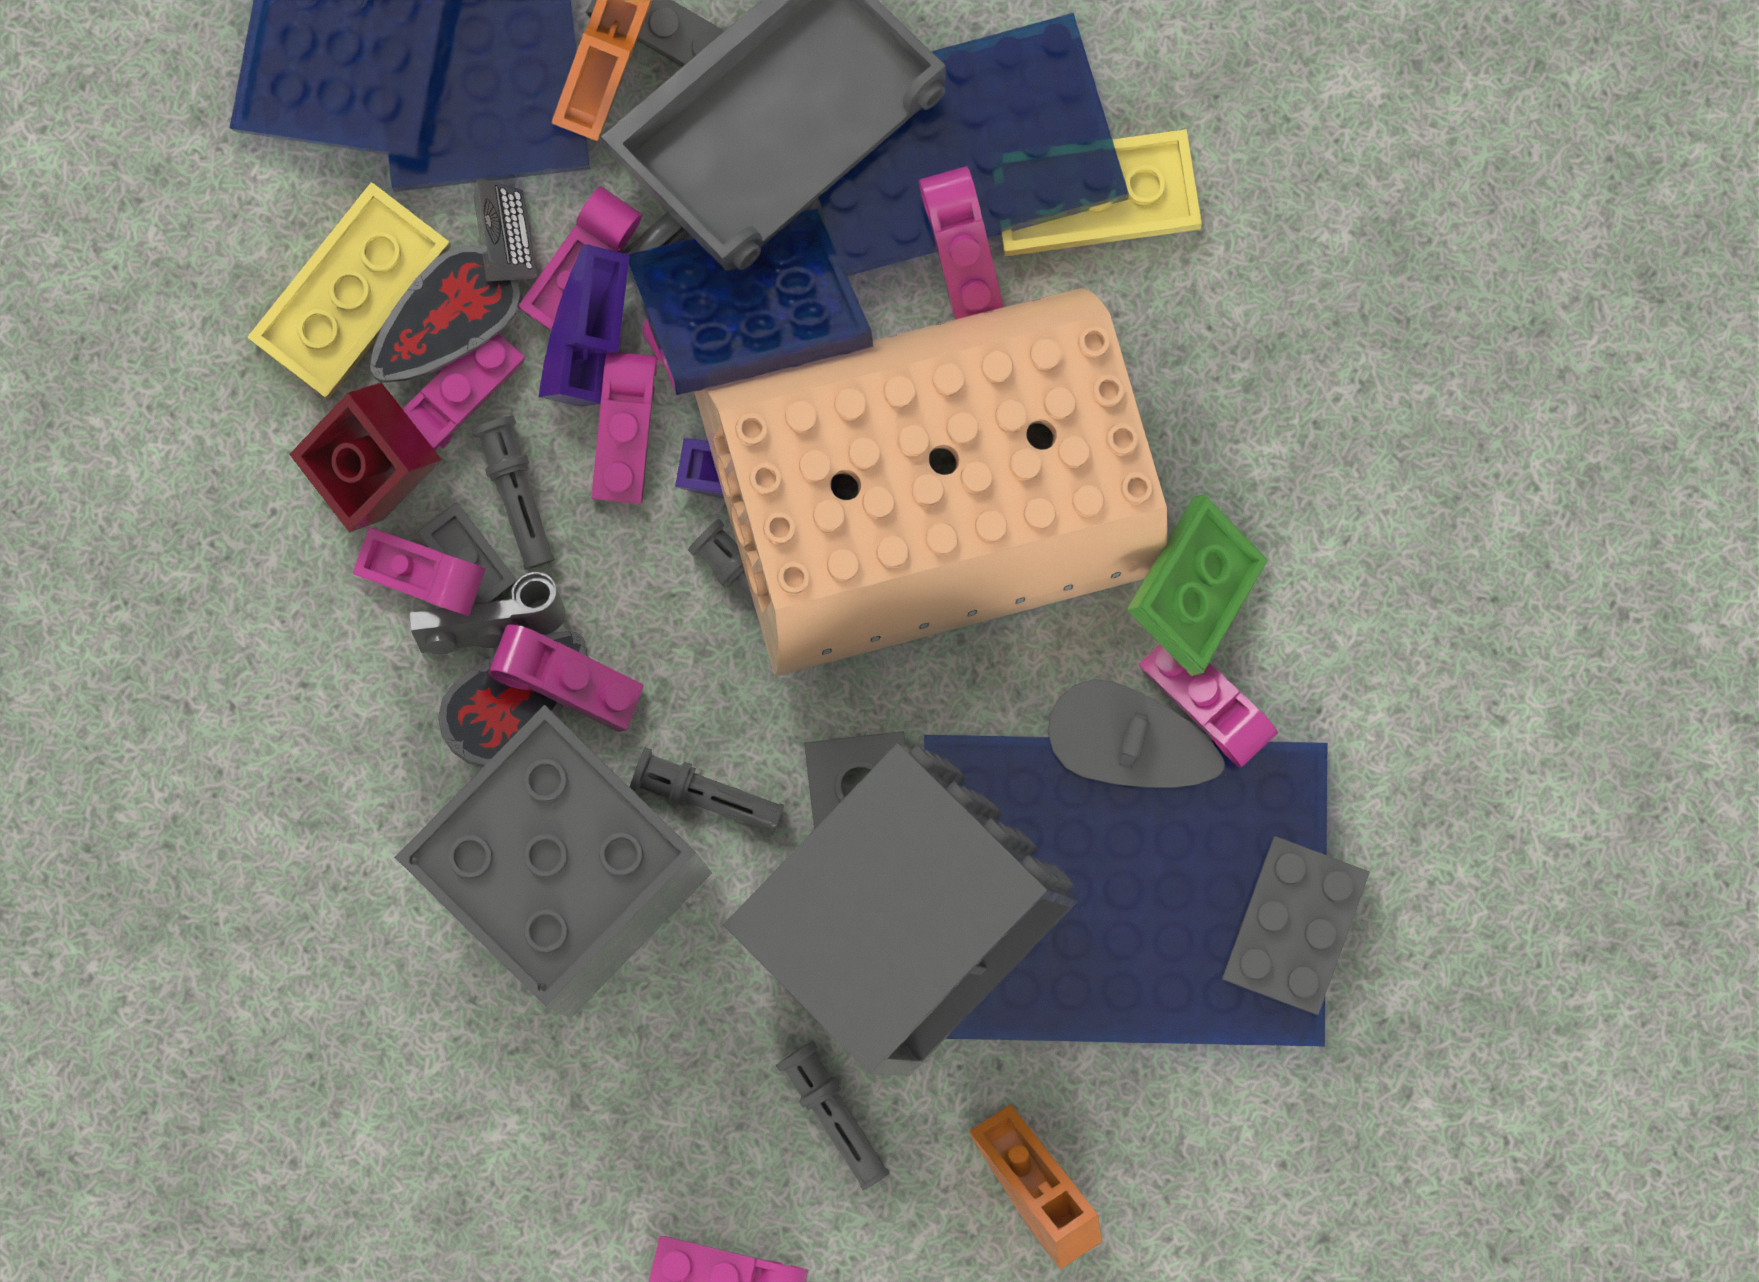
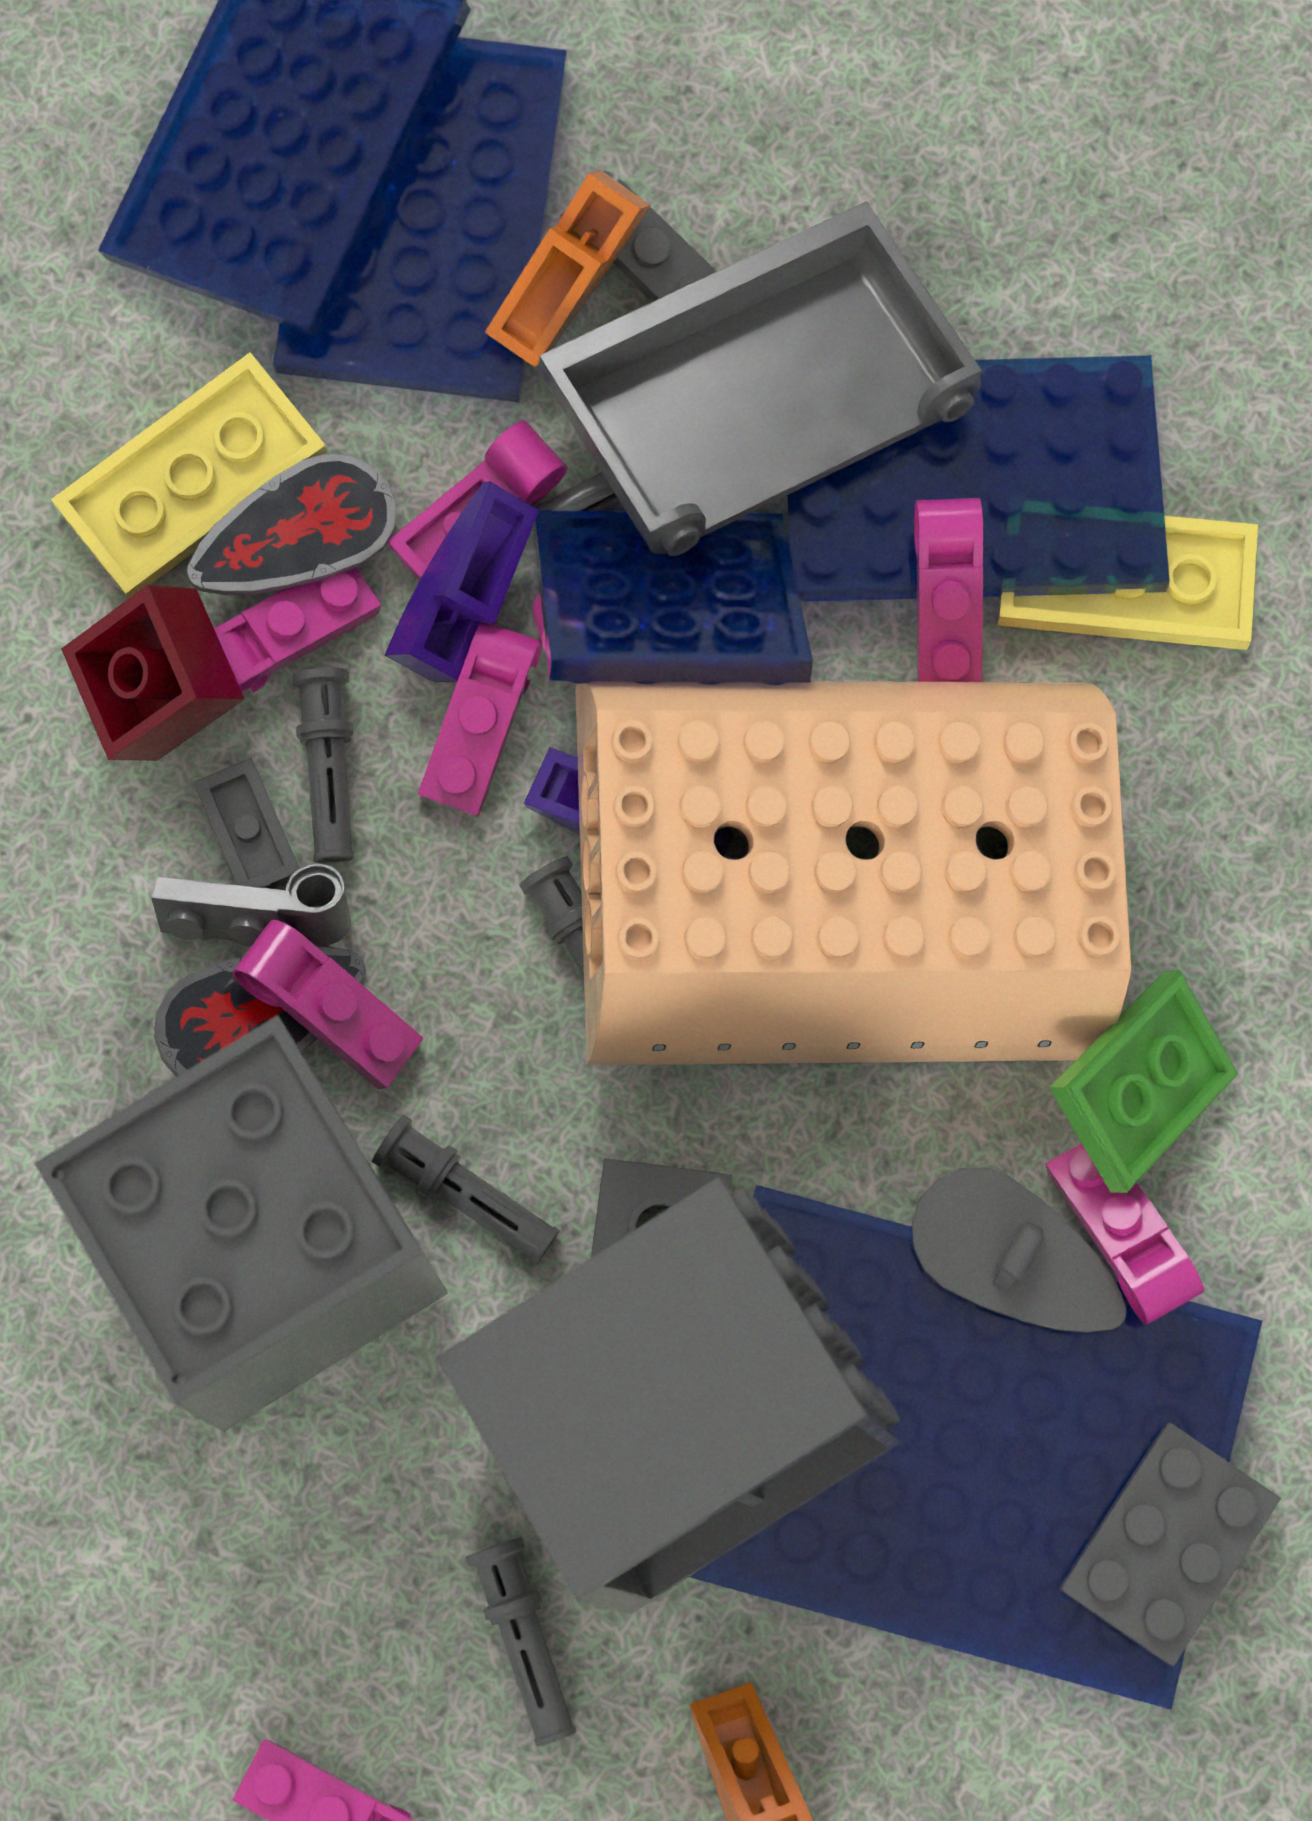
camera: 15 degrees right, 5 degrees down
(419, 571) = (182, 828): dark pink plate -> none
(503, 231) = (394, 448): slope -> none

